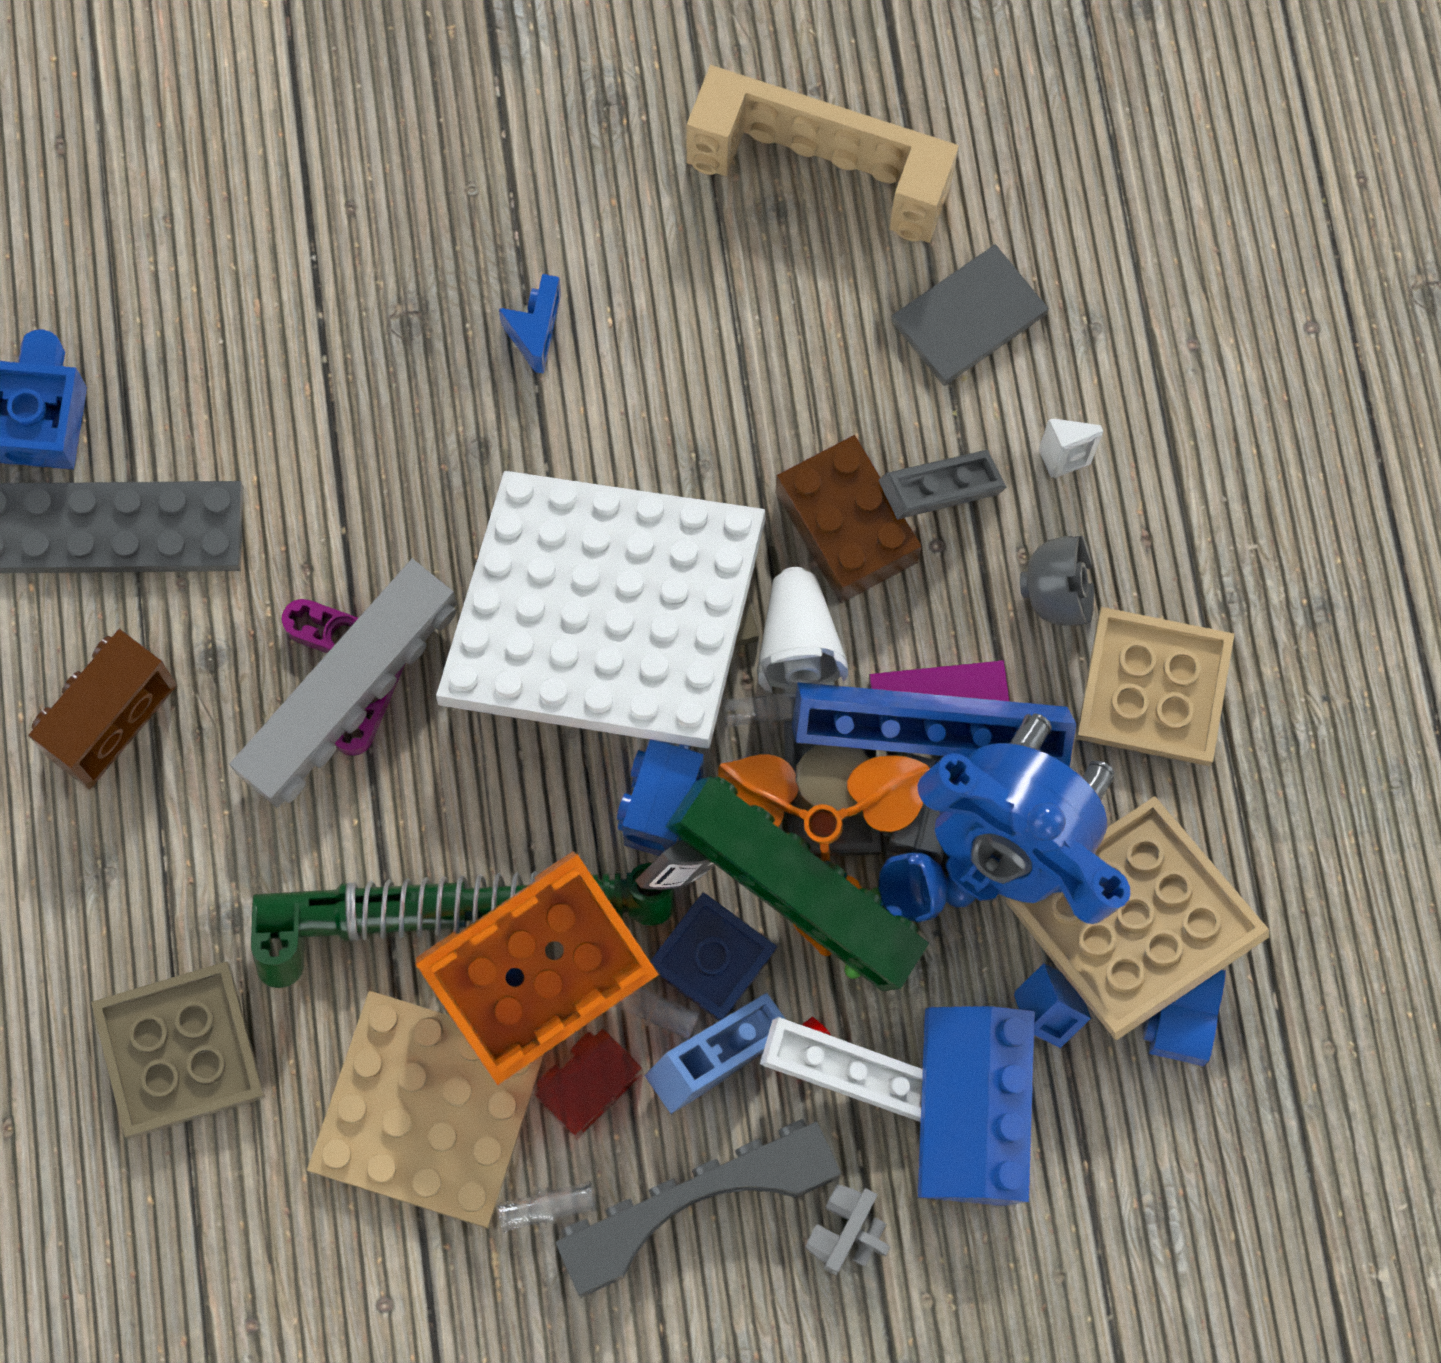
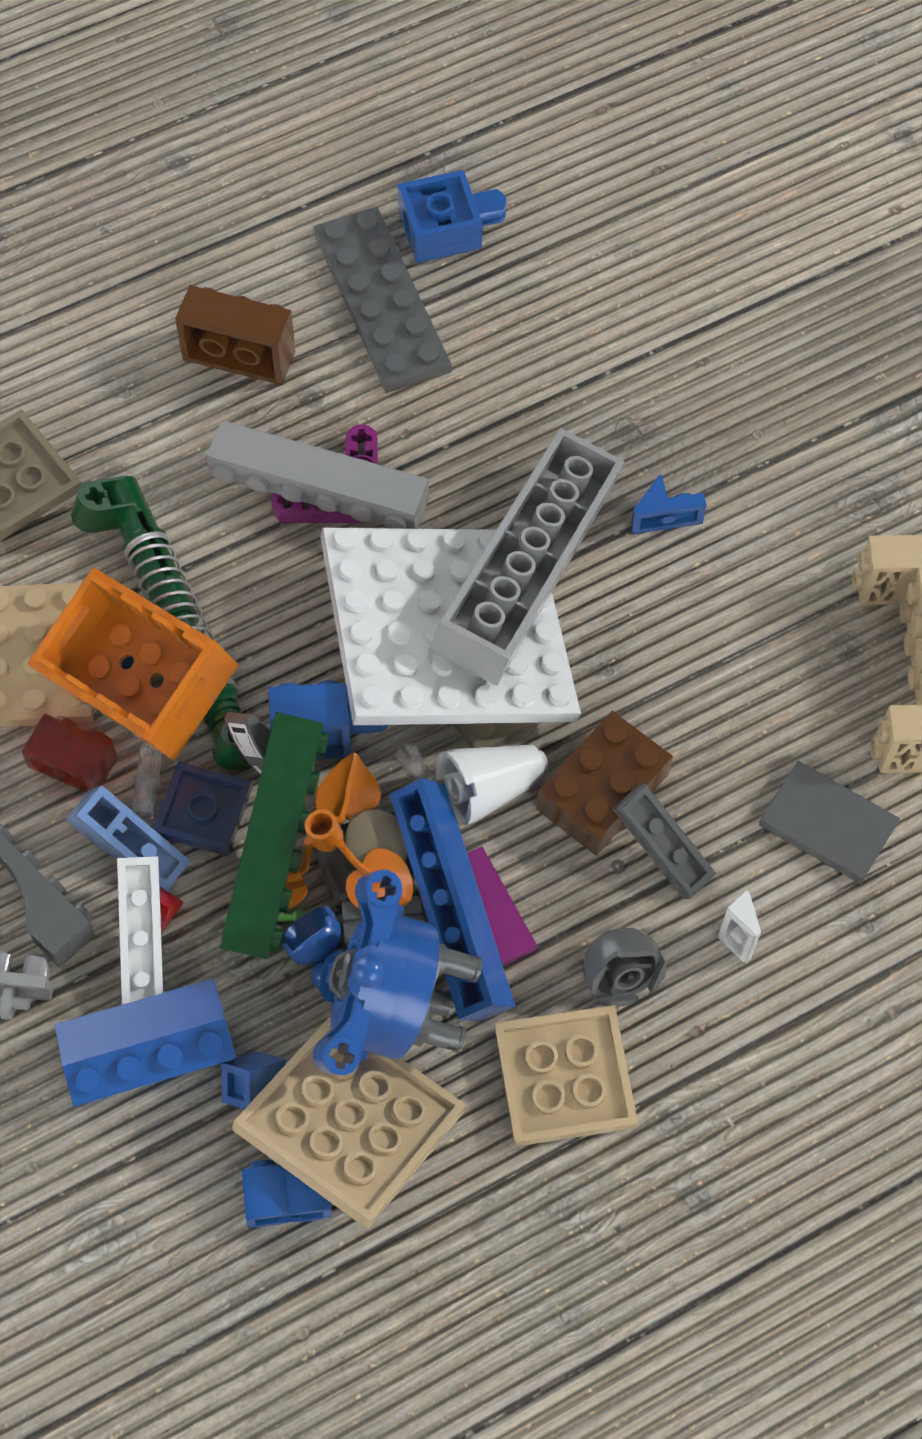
camera: 70 degrees right, 10 degrees down
(561, 486) = (526, 557): none -> light grey brick

